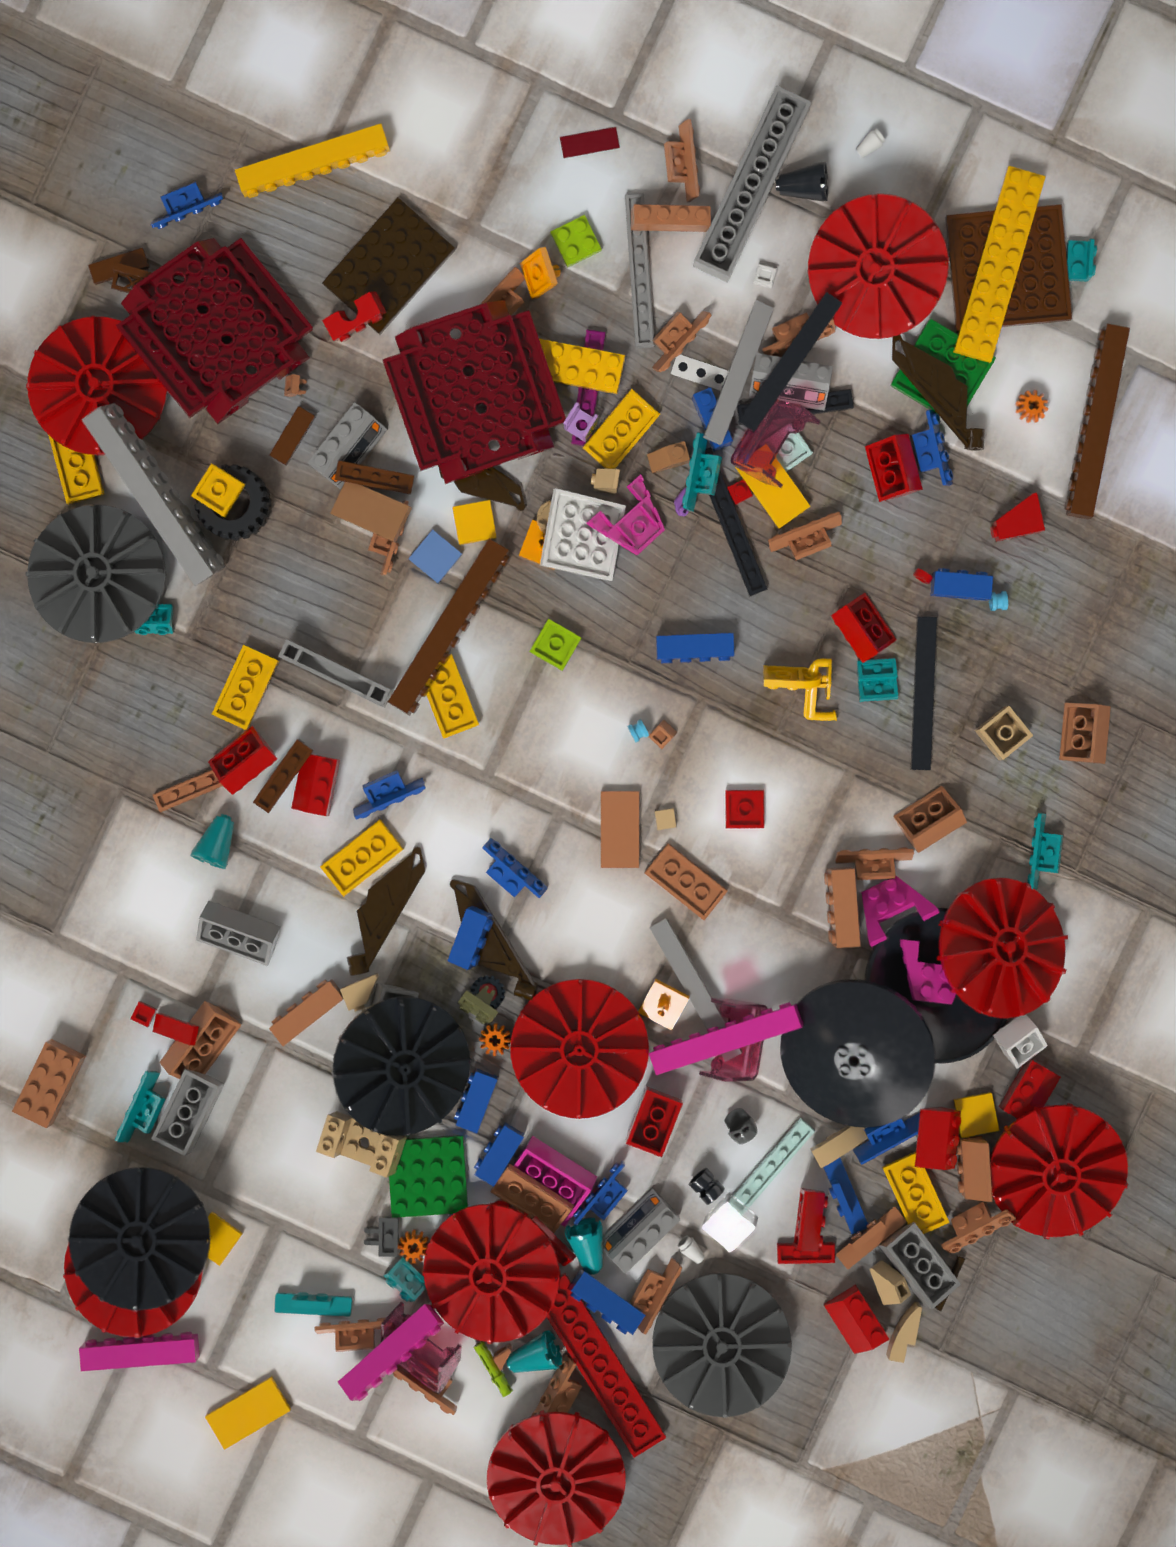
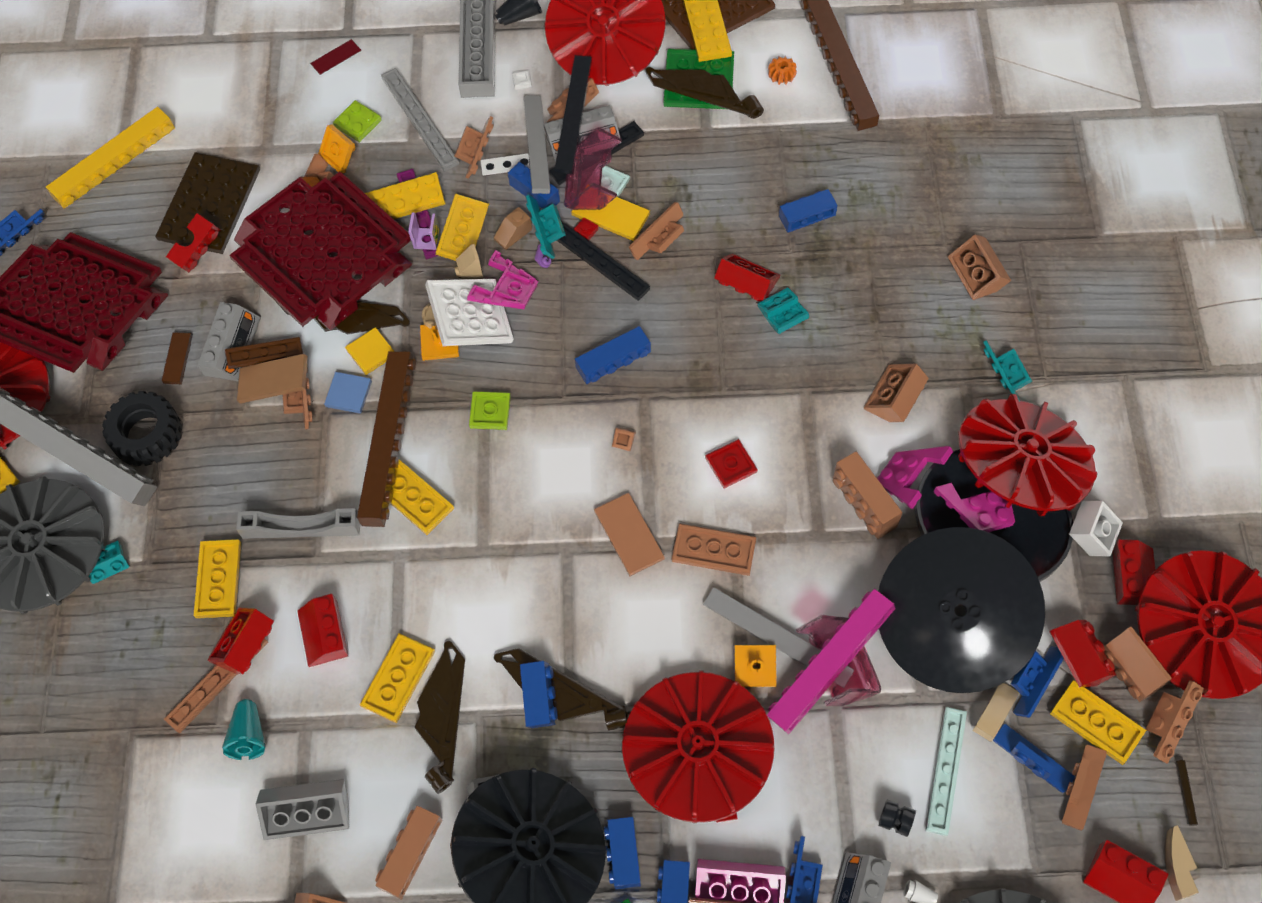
camera: 25 degrees left, 25 degrees down
(218, 490) = (122, 416): yellow tile -> none
(283, 776) = (286, 635): reddish brown fence -> none
(292, 385) = (161, 319): nougat tile -> none
(359, 992) = (451, 802): tan slope -> none
(385, 792) = (392, 603): blue bracket -> none
(483, 999) = (578, 748): plate -> none
(490, 1043) = (614, 775): orange gear -> none
(511, 873) = (547, 621): blue bracket -> none
(638, 730) = (600, 443): medium azure wheel -> none
(654, 1121) = (809, 779): red brick -> none
(665, 819) = (665, 505): tan tile -> none
(670, 218) = (424, 70): nougat brick -> none
(681, 161) = (416, 35): nougat bracket -> none
(730, 1222) = (941, 840): clear brick -> none
(741, 1126) = (894, 741): dark grey helmet -> none
(789, 1255) = (1032, 837): red tile -> none
(803, 678) = (729, 330): yellow plate -> none
(810, 1220) = (1015, 796): red slope -> none
(876, 863) = (873, 447): nougat bracket -> none
(889, 1283) = (1132, 820): tan slope -> none
(893, 467) = (700, 155): red slope -> none
(920, 1265) = (1147, 786): light grey slope -> none
(922, 576) = (772, 218): red tile -> none
(923, 693) = (828, 304): black tile -> none
(931, 449) = (723, 134): blue bracket -> none
(977, 1114) = (1105, 618): yellow tile -> none
(999, 601) = (845, 207): medium azure wheel -> none
(1003, 733) = (913, 296): tan brick -> none
(1019, 521) = (824, 146): red slope -> none

